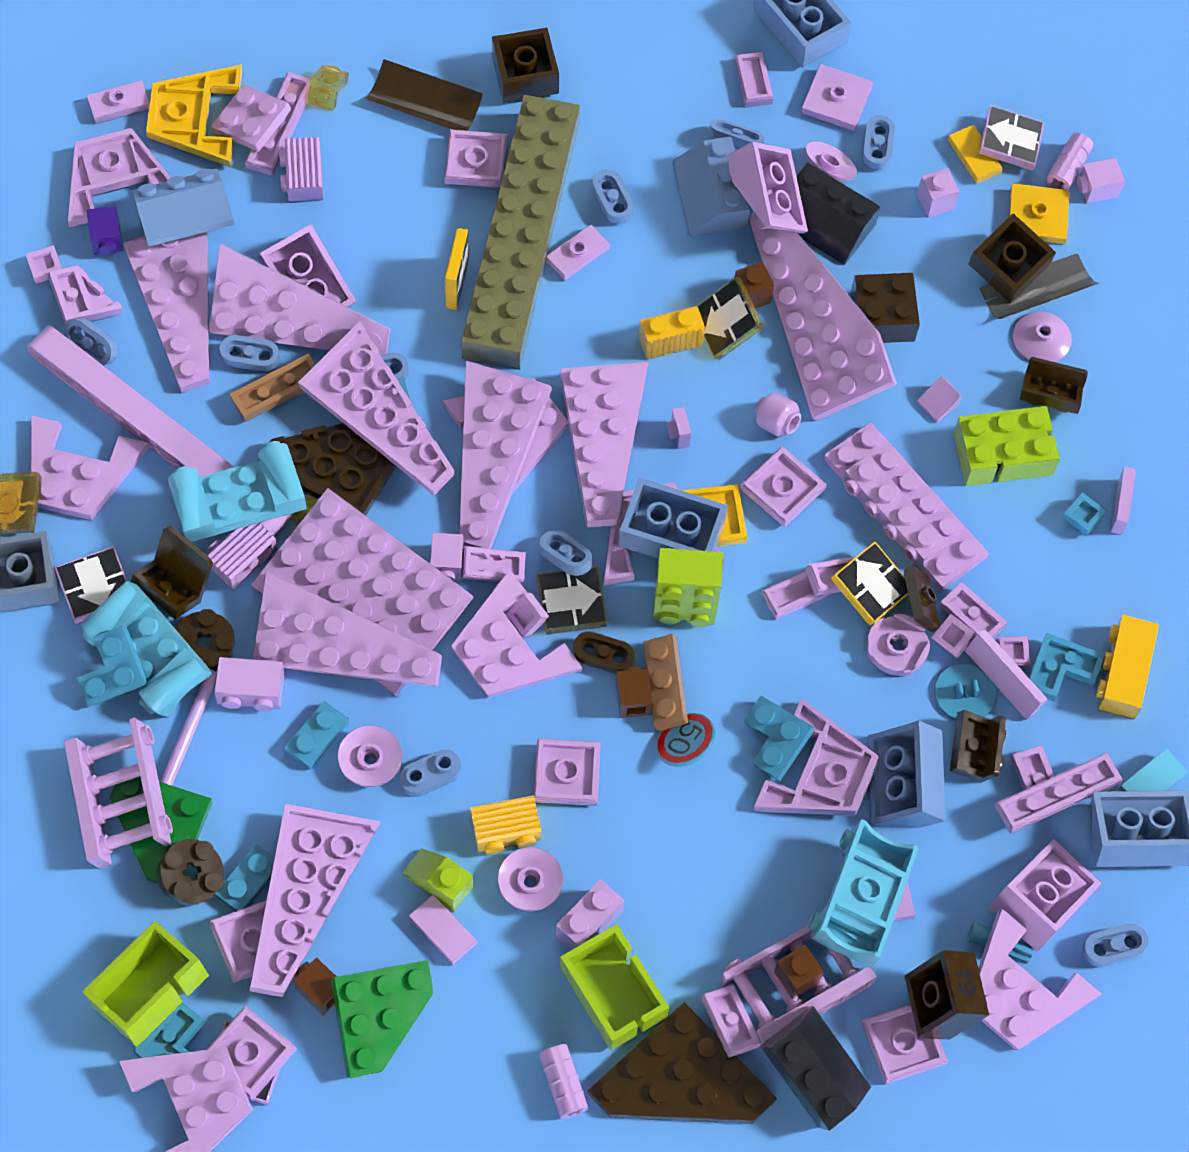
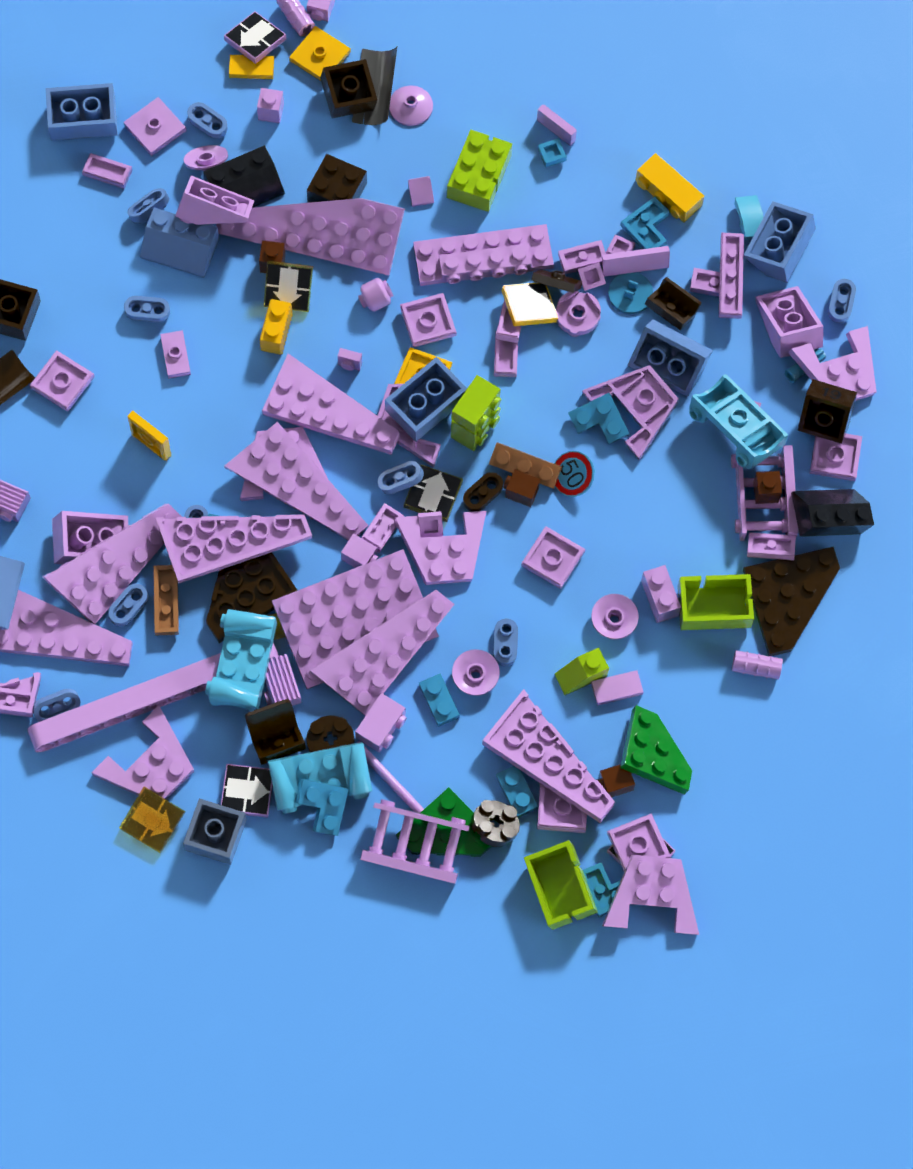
camera: 60 degrees left, 5 degrees up
(506, 824) = (569, 612): yellow brick -> none
(520, 232) = (140, 380): olive brick -> none
(1053, 385) = (453, 118): dark brown bracket -> none

